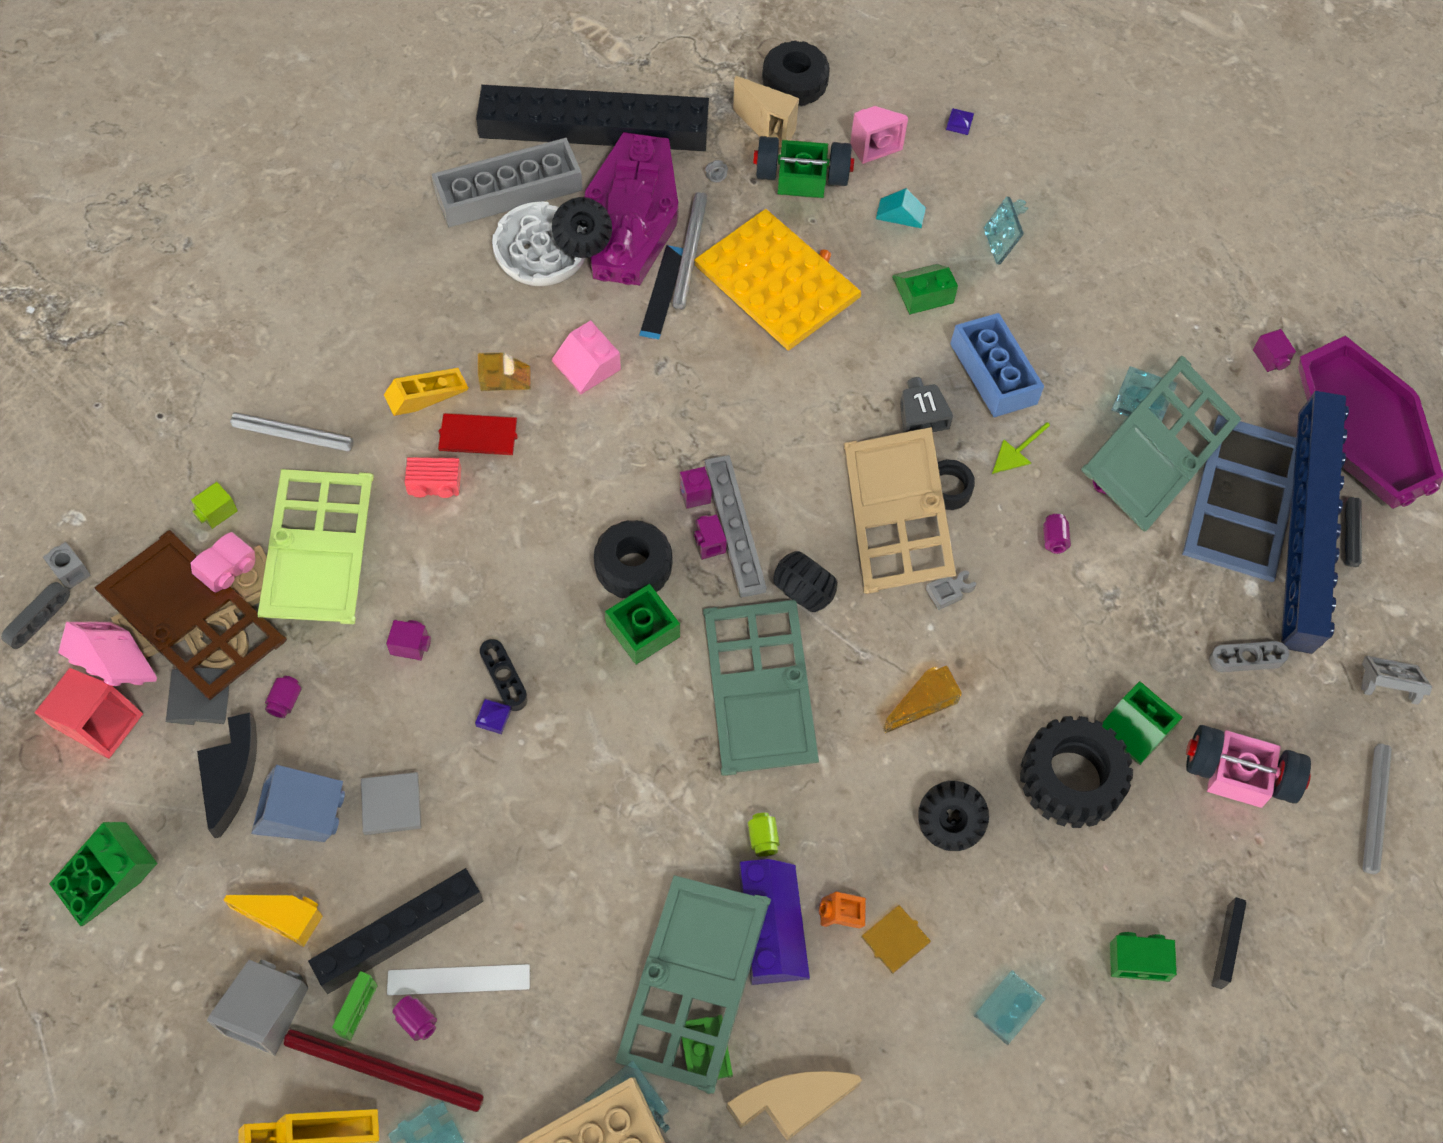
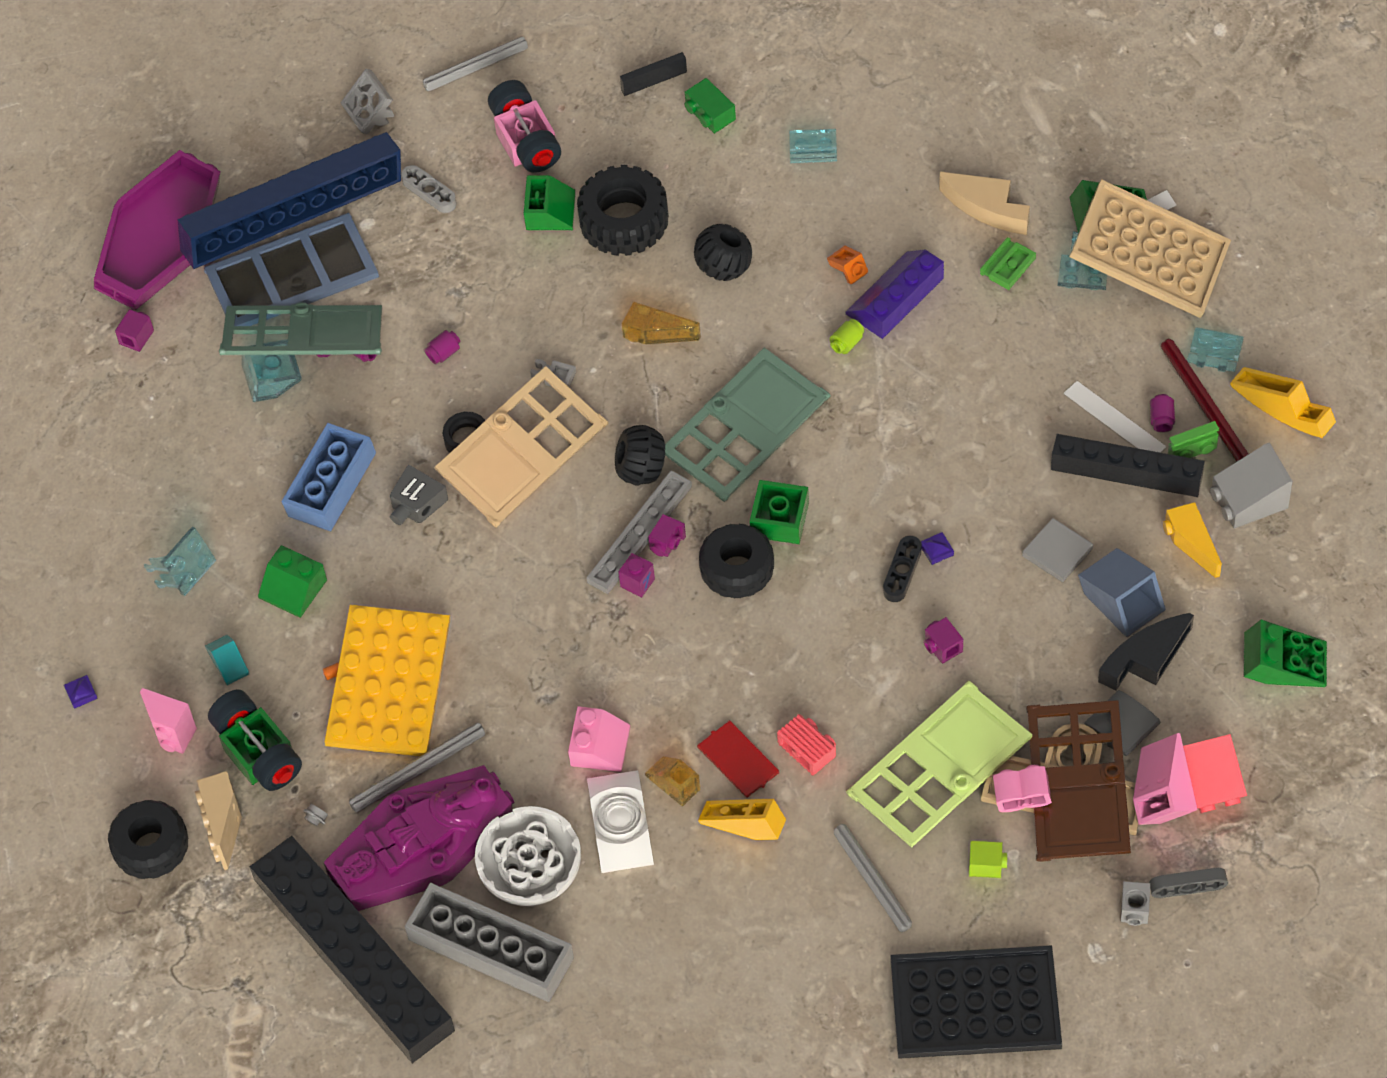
camera: 125 degrees left, 5 degrees down
(132, 410) = (975, 1002): none -> black plate
(282, 696) = (1065, 673): magenta brick -> none
(515, 328) = (620, 821): none -> white slope
(587, 214) = (492, 819): black wheel -> none
(662, 293) = (481, 753): black sticker -> none
(704, 955) = (958, 303): sand green door -> none
(896, 939) = (832, 230): clear yellow piece -> none
(1011, 457) = (398, 424): lime piece -> none

